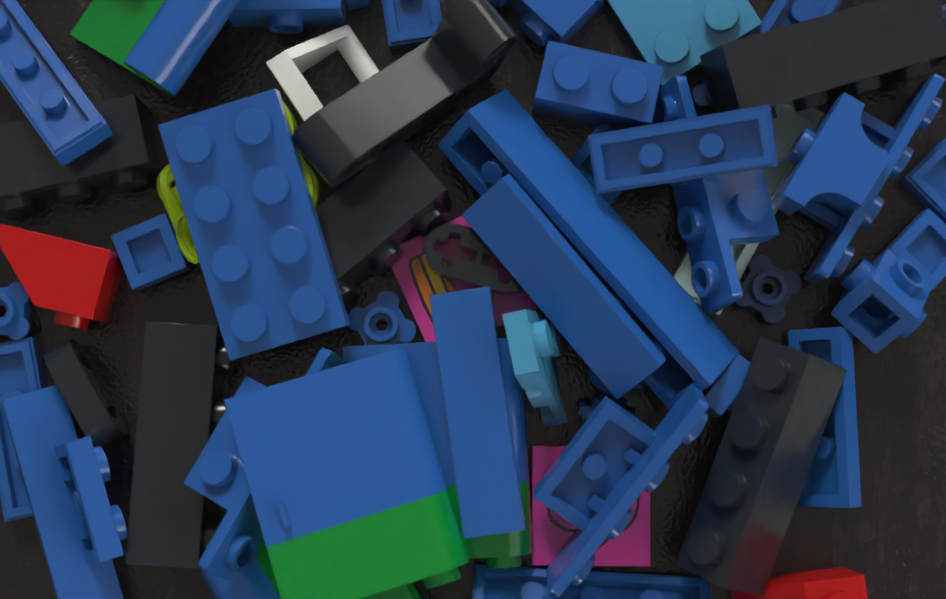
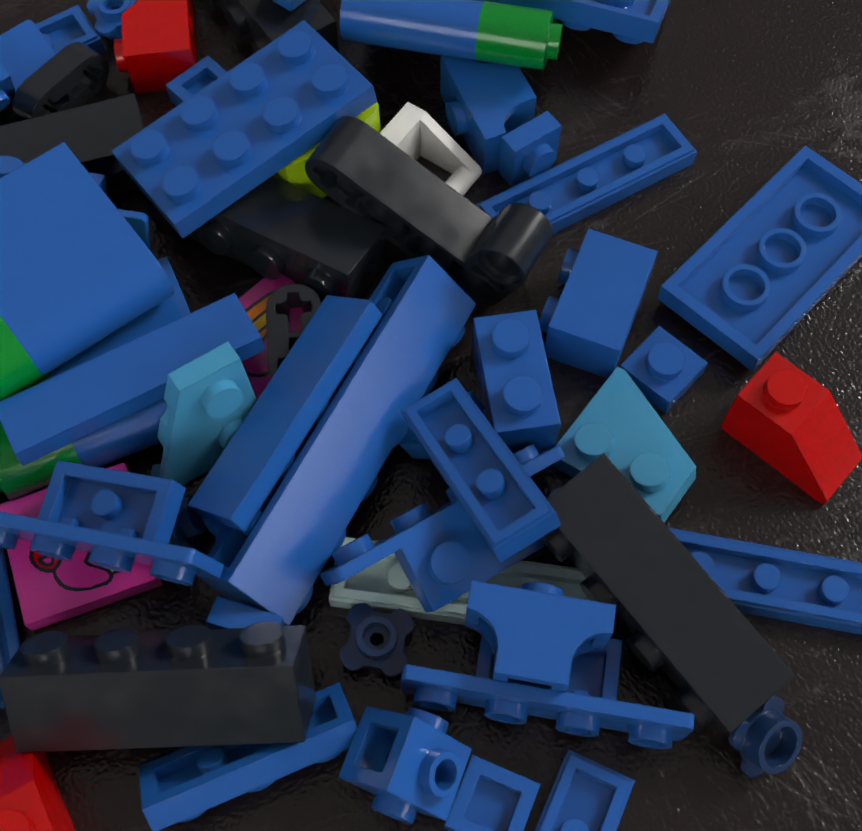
camera: 70 degrees right, 20 degrees down
(384, 308) = (204, 274): blue plate -> none

